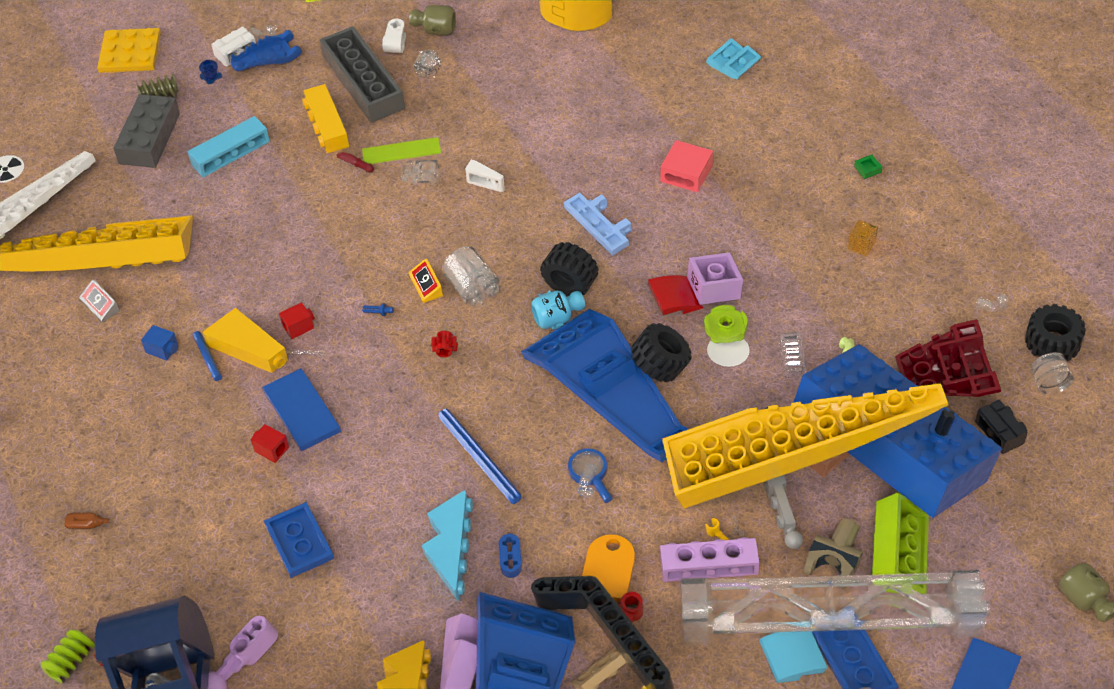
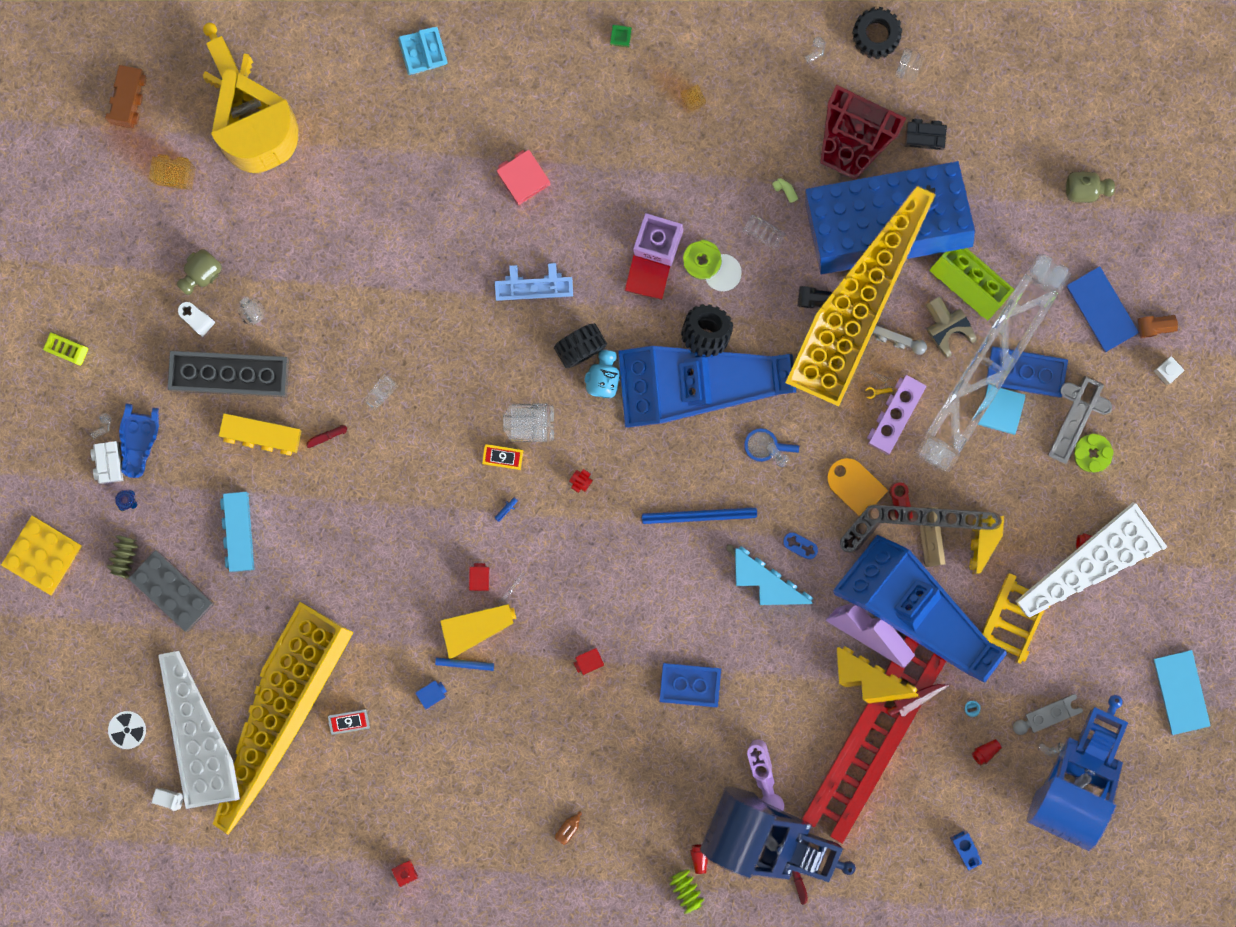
camera: 65 degrees left, 35 degrees up
(301, 409) = (567, 620): blue tile -> none
(401, 150) = (336, 390): lime sticker -> none
(483, 176) = (419, 345): white slope -> none

